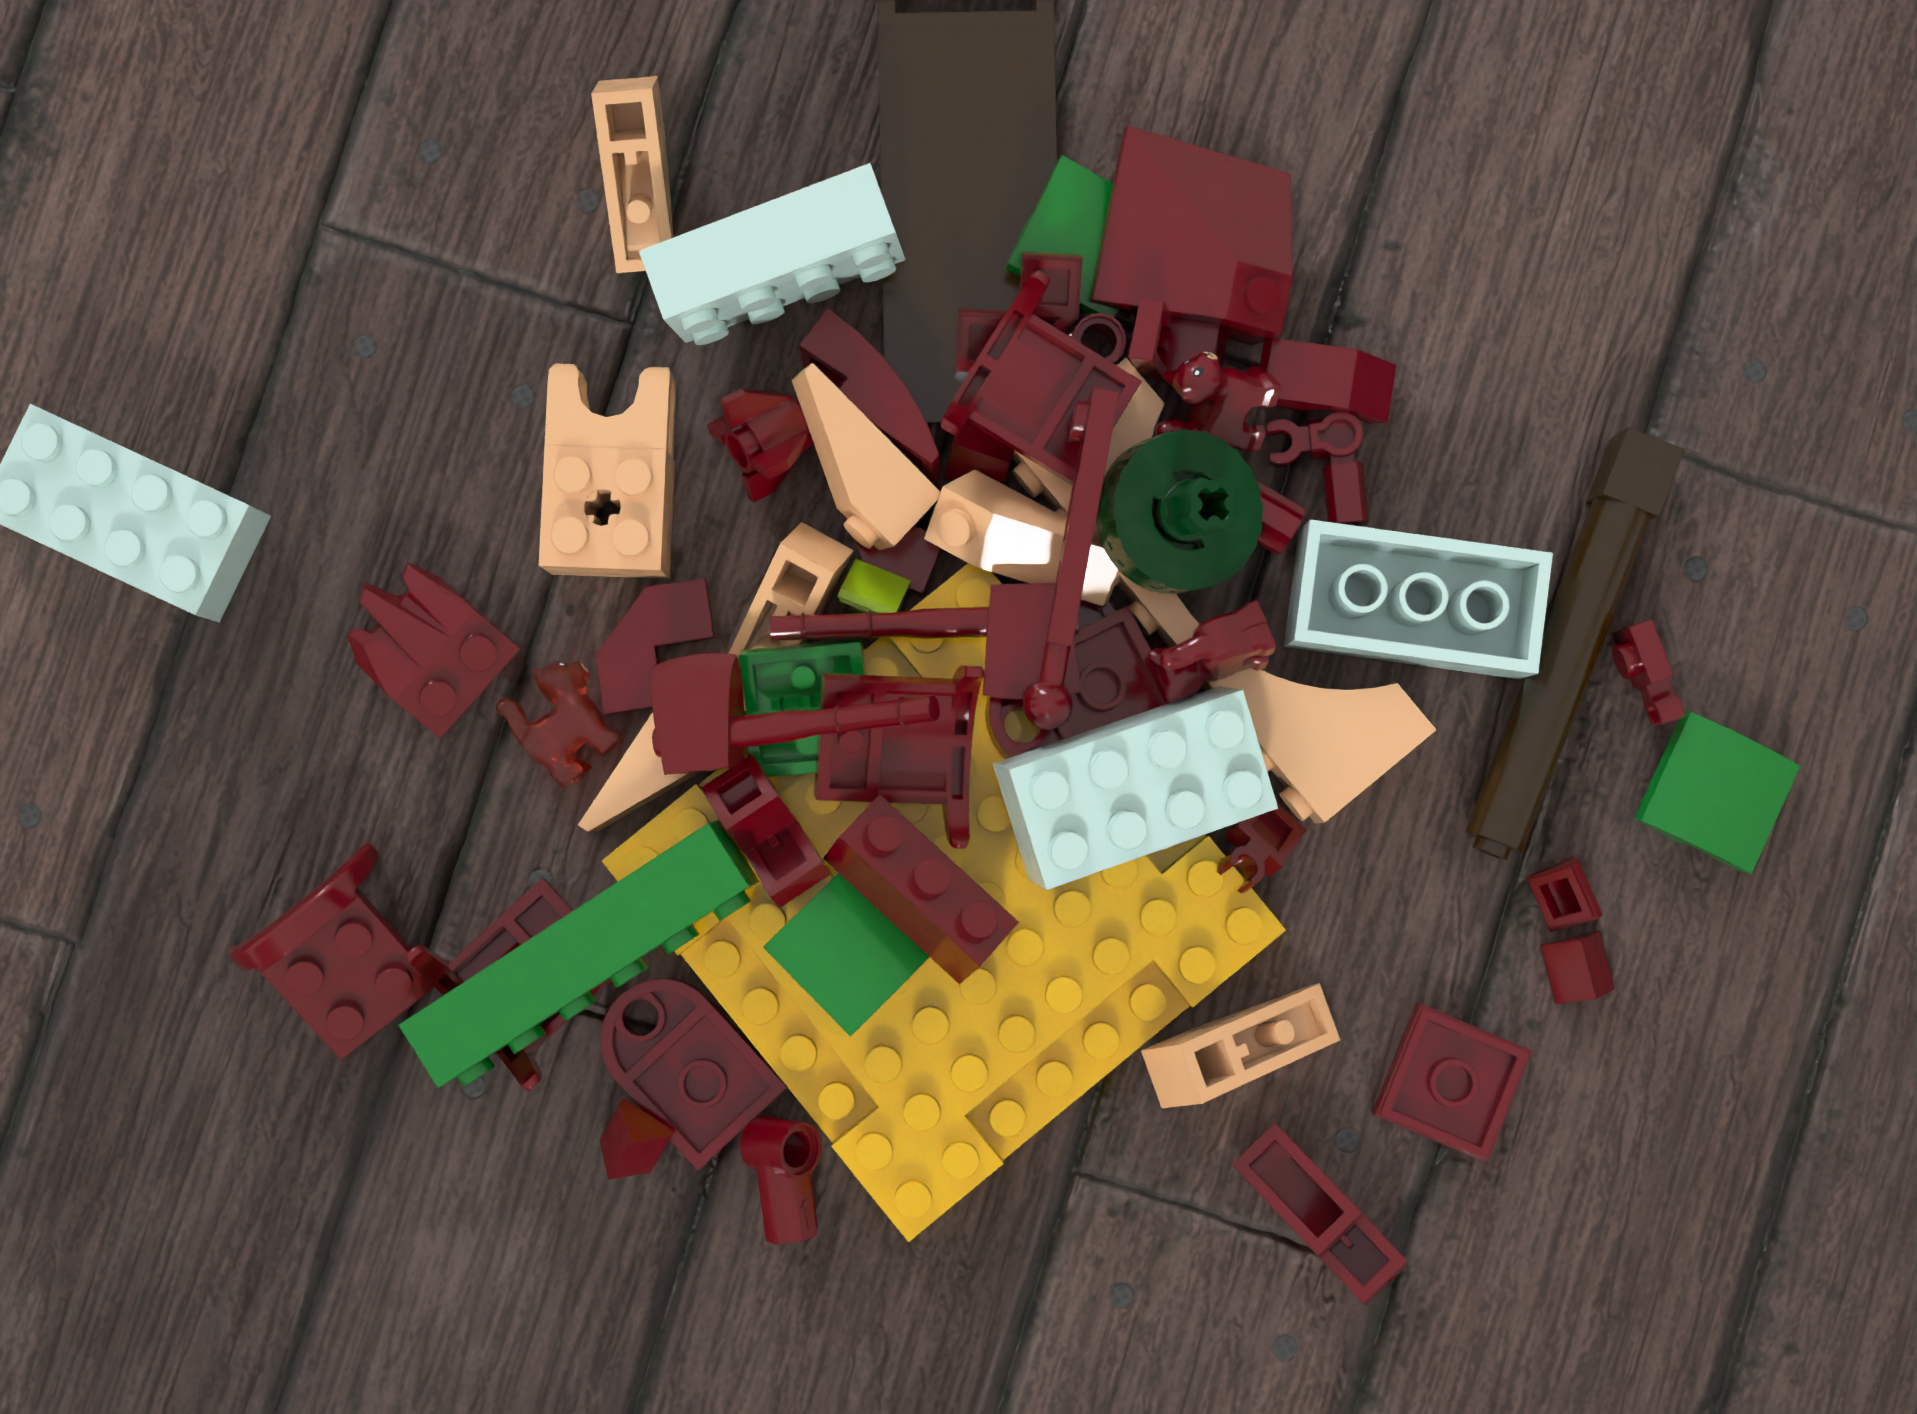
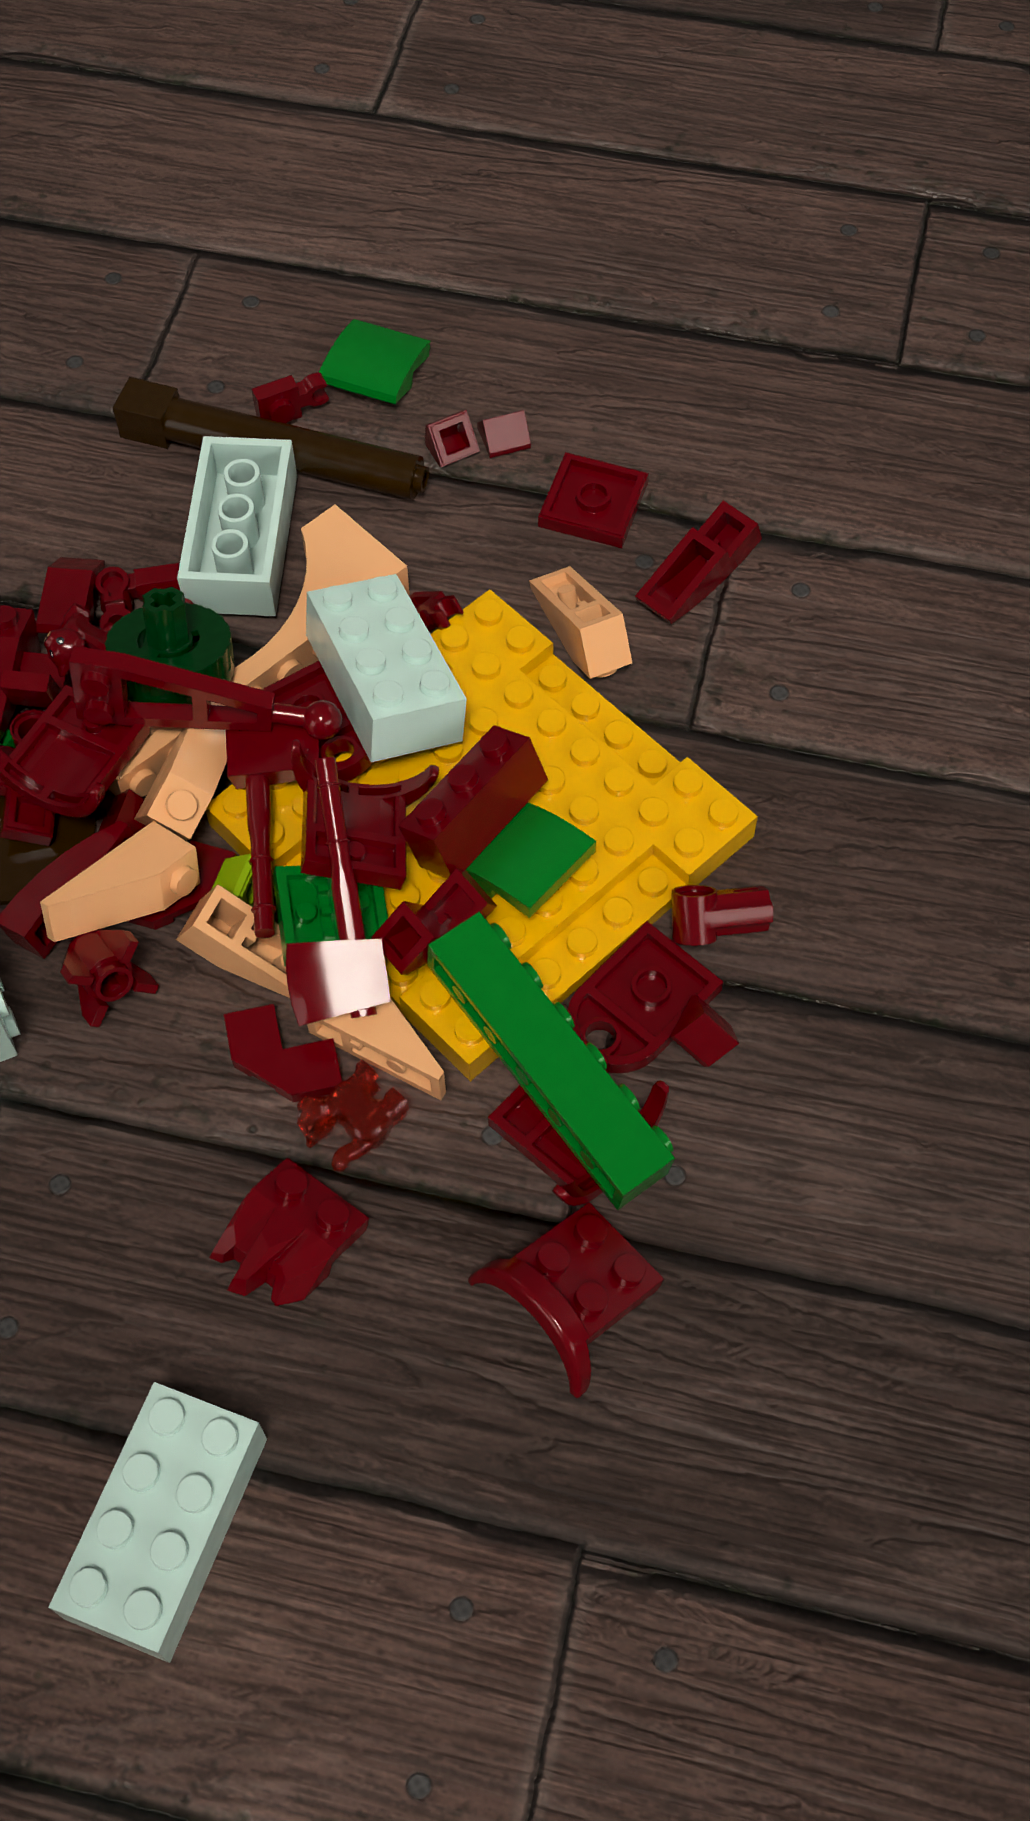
camera: 90 degrees left, 25 degrees down
(602, 461) = (123, 1090): light nougat brick -> none
(1215, 651) = (278, 623): dark red animal -> none

